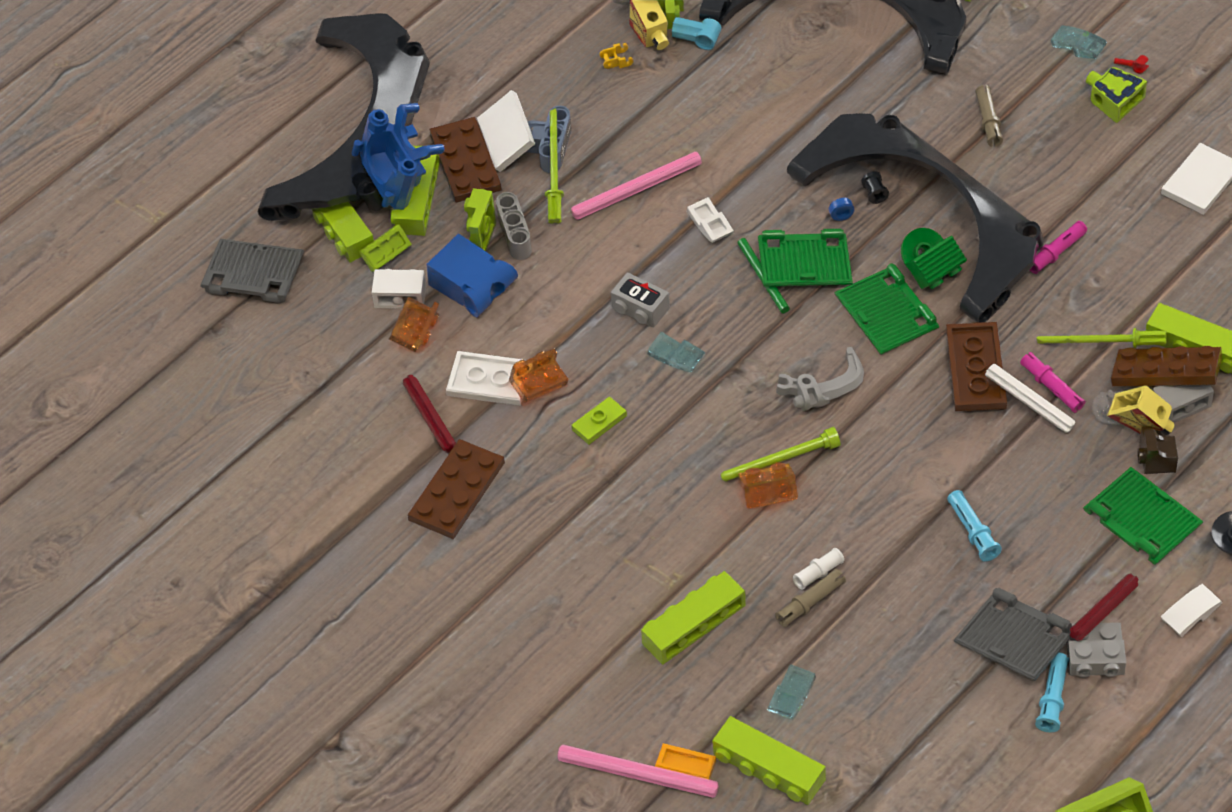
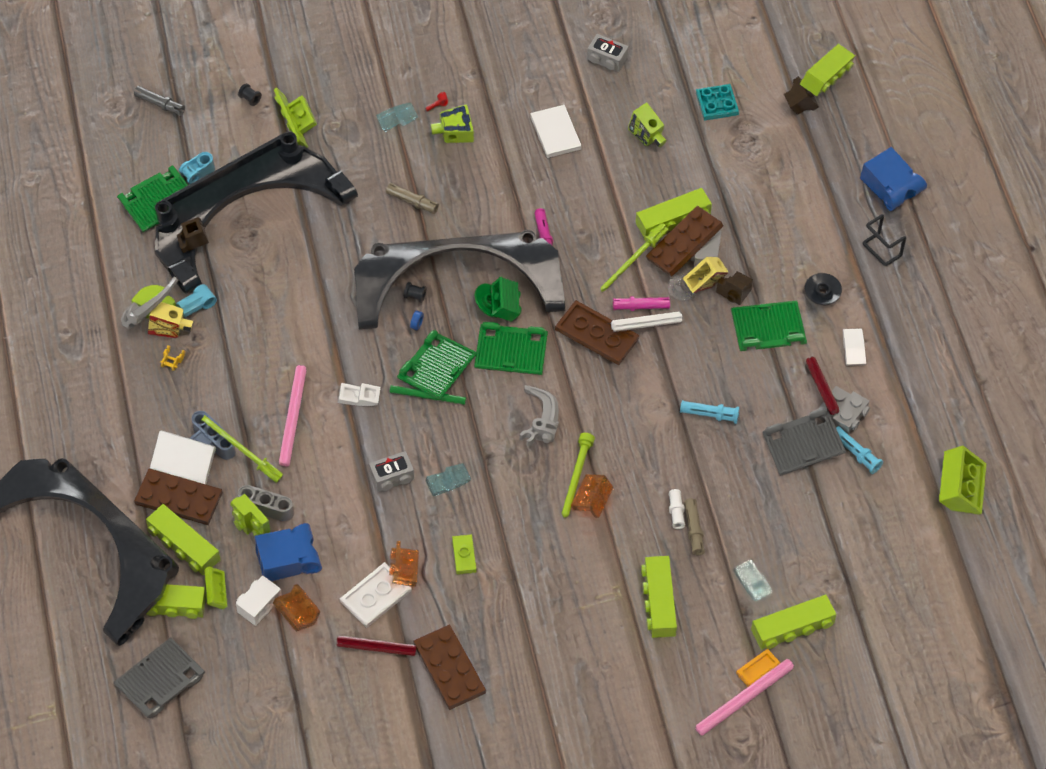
camera: 60 degrees left, 5 degrees up
(391, 158) = (169, 532): blue piece -> none

